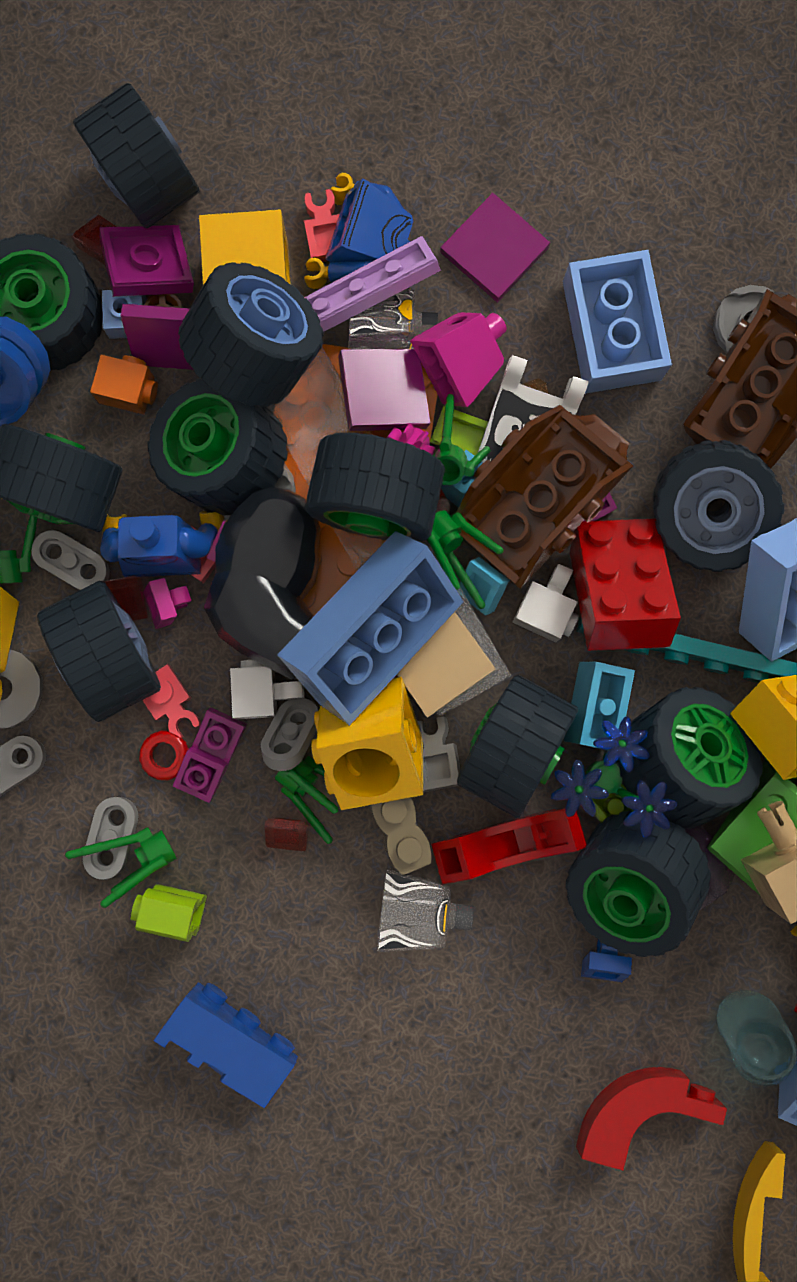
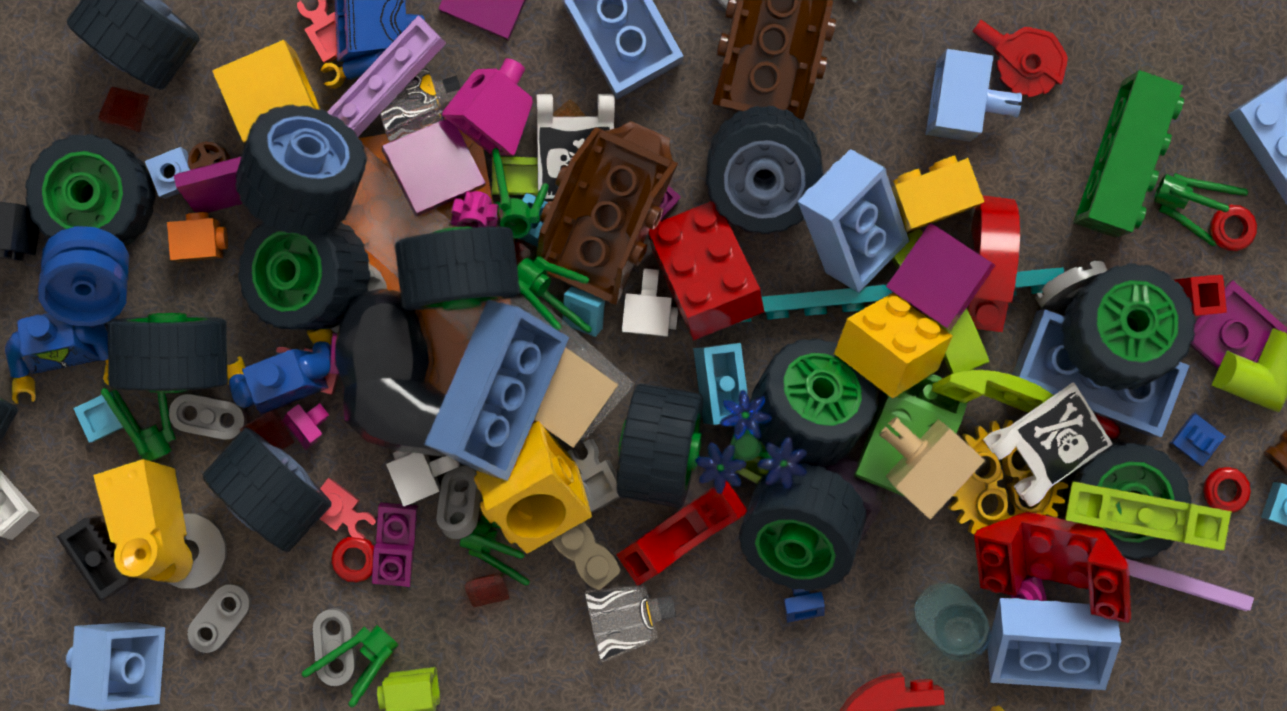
camera: 20 degrees left, 5 degrees up
(146, 260) = (174, 119): magenta tile -> none

